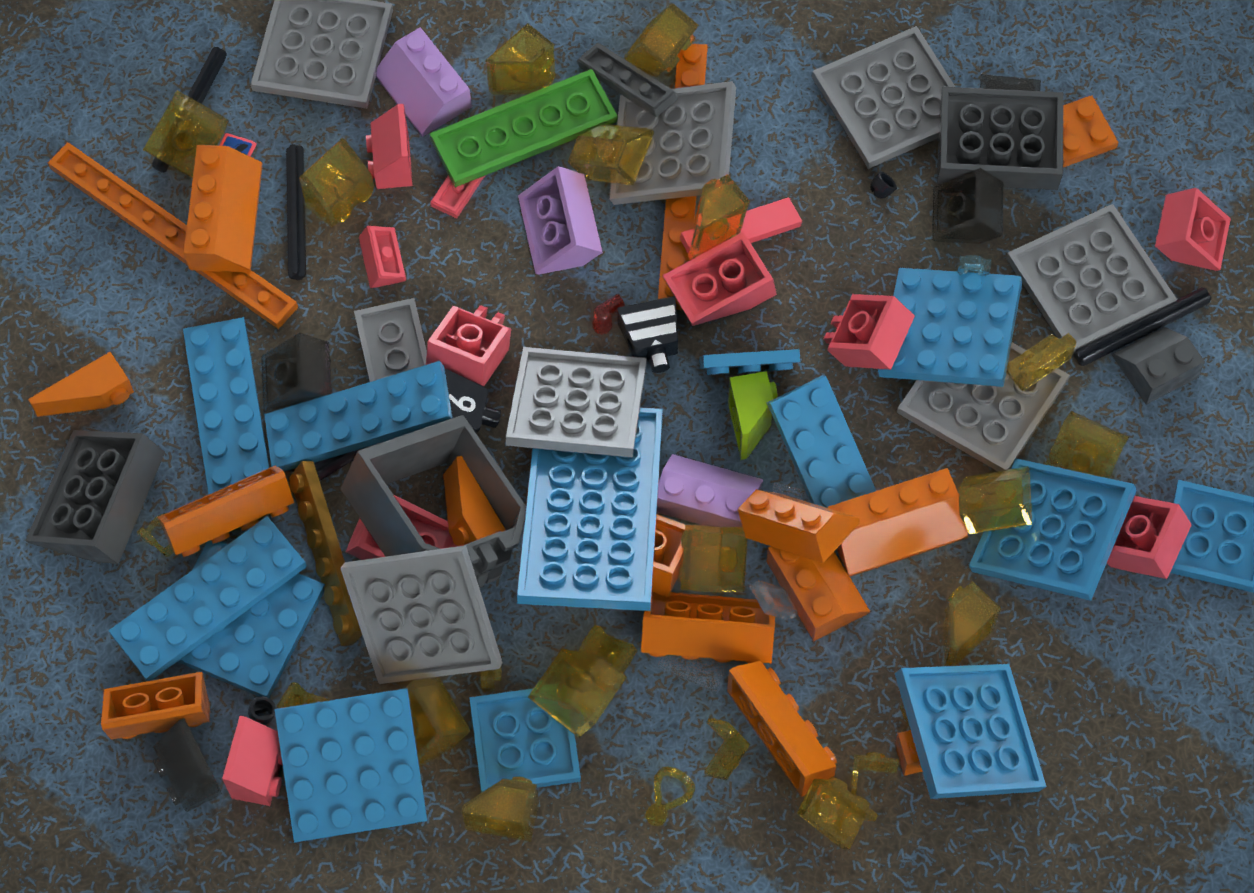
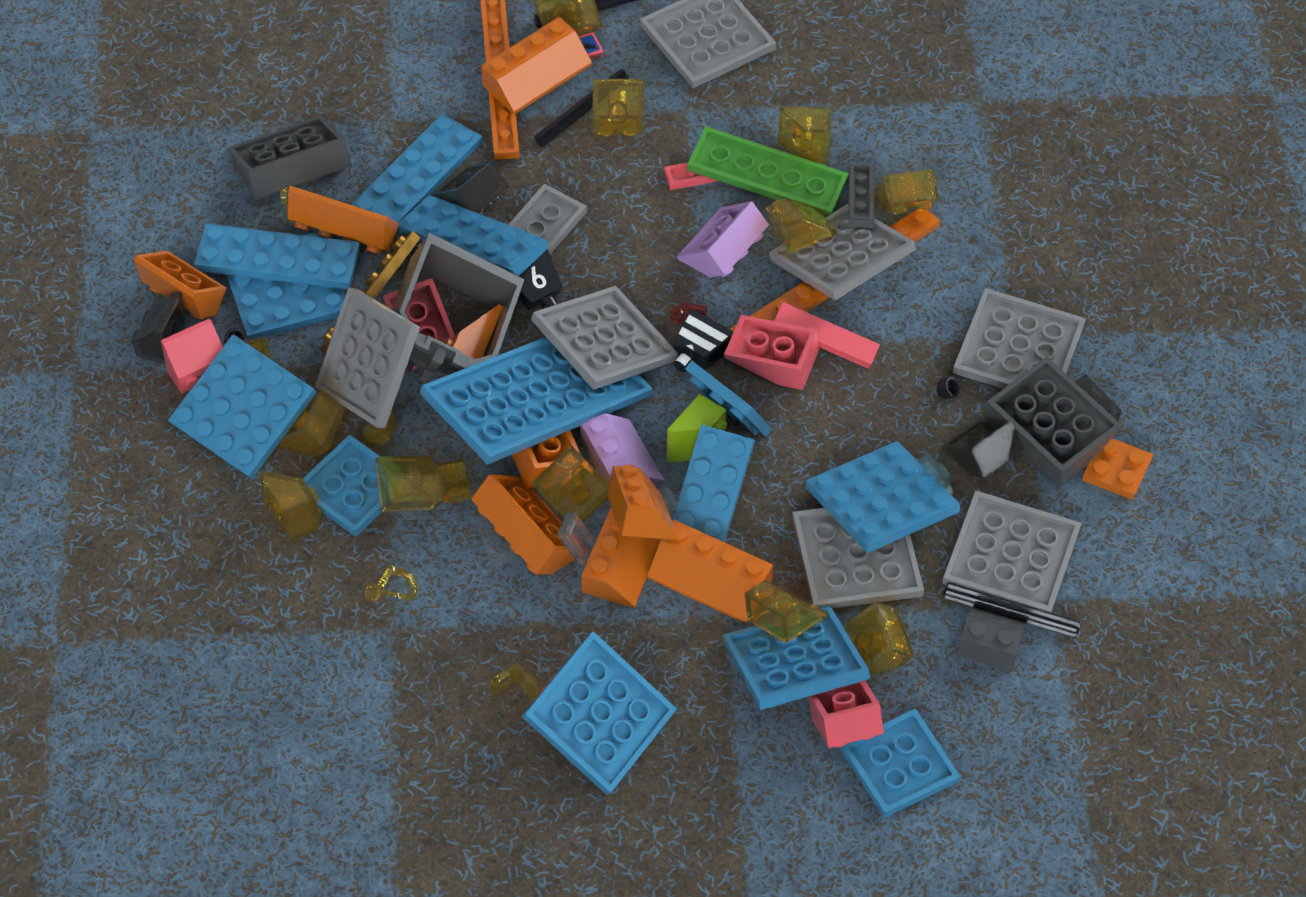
camera: 45 degrees right, 10 degrees down
(89, 388) = (354, 99): orange slope -> none
(381, 256) = (601, 172): coral slope -> none
(390, 150) = (674, 119): coral slope -> none
(424, 82) = (741, 99): lavender slope -> none
(470, 343) = (583, 254): coral hinge -> none
(717, 215) = (804, 302): clear yellow slope -> none
(729, 753) = (452, 601): clear yellow bracket -> none
(780, 725) = (497, 609): orange slope -> none
(835, 811) = (467, 681): clear yellow bracket -> none
(869, 331) = (823, 451): coral hinge -> none
(967, 622) = (671, 657): clear yellow slope -> none
(1040, 360) = (909, 561): clear yellow bracket -> none
(1193, 230) = (1116, 585): coral slope -> none

